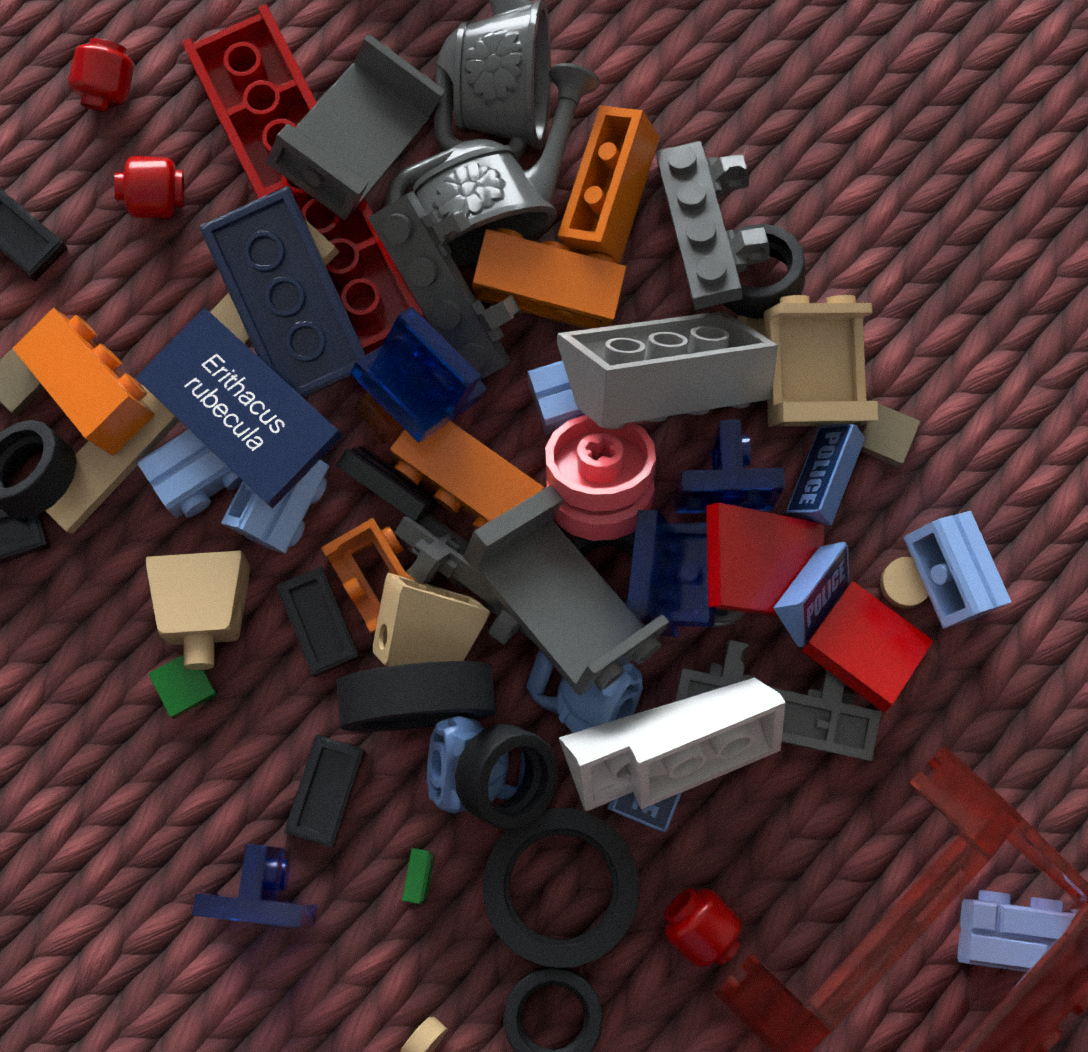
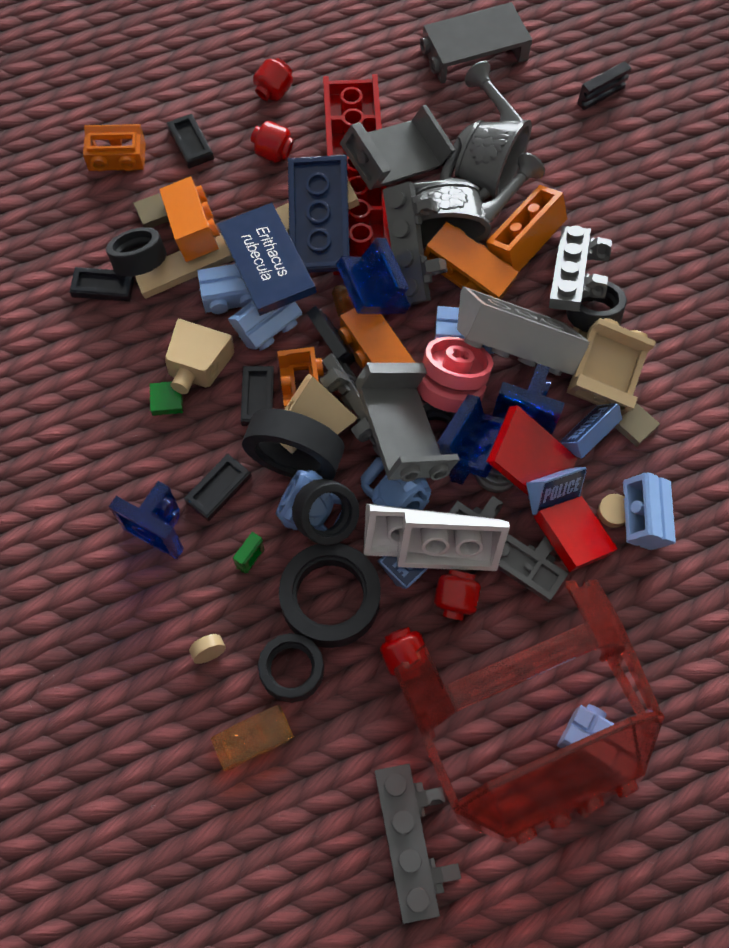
camera: 20 degrees right, 10 degrees down
(740, 809) = (457, 594): none -> red head

